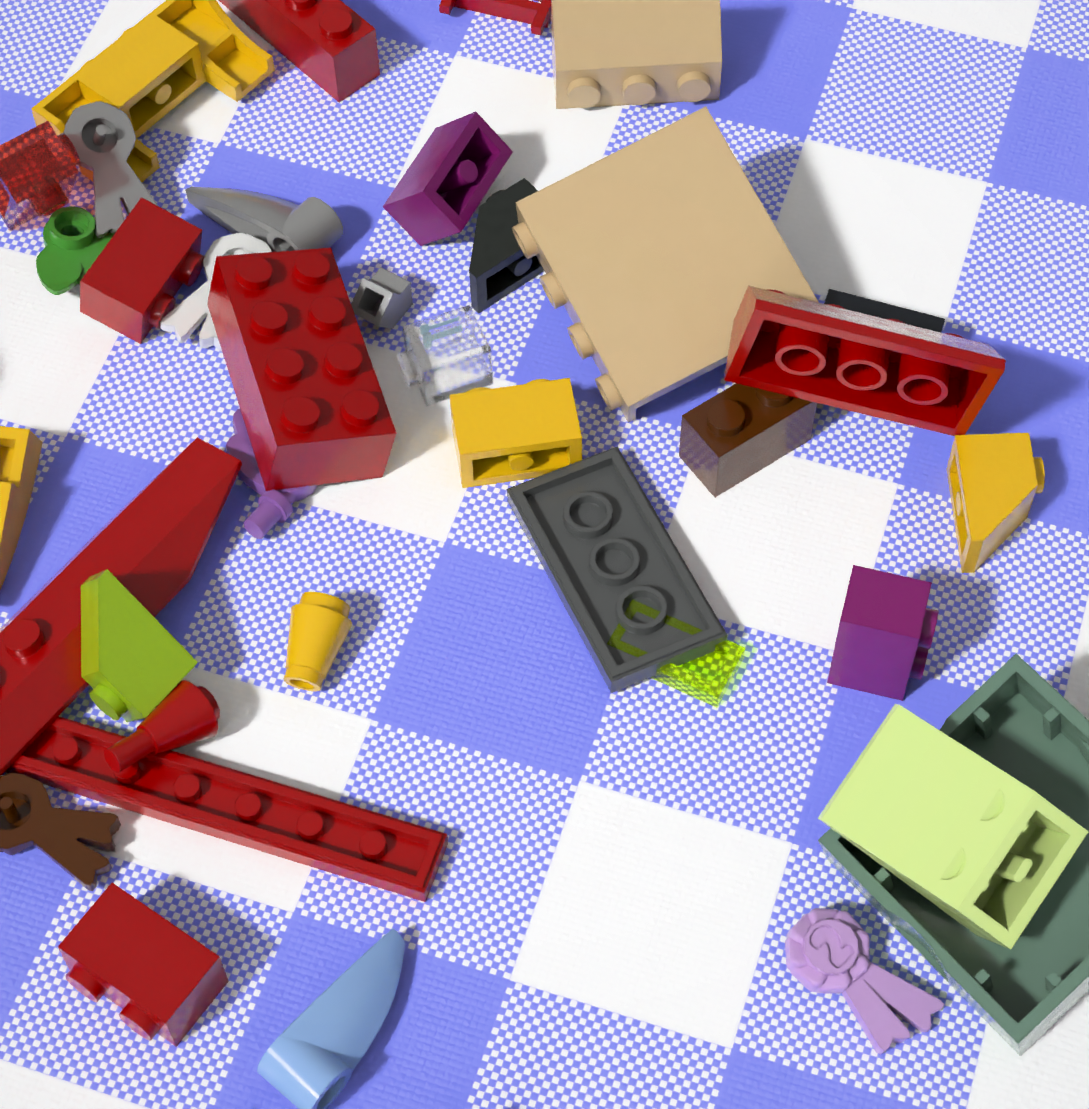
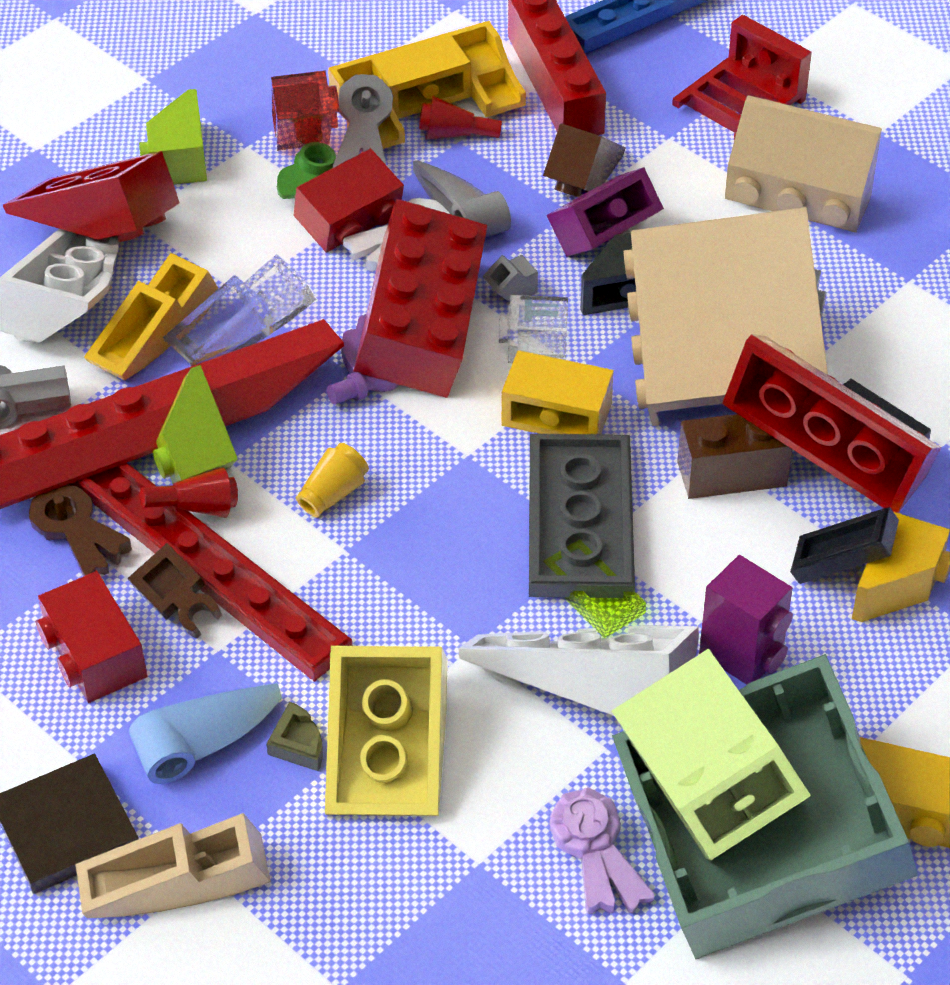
camera: 25 degrees right, 10 degrees down
(89, 467) = (242, 312): none -> clear slope
(197, 123) = (447, 120): none -> red cone
(200, 856) = (172, 586): none -> reddish brown plate
(382, 123) = (581, 160): none -> reddish brown slope
(450, 985) = (296, 738): none -> olive tile
(555, 938) = (386, 730): none -> light yellow slope
(762, 751) = (583, 664): none -> white wedge
(927, 495) = (844, 545): none -> black tile

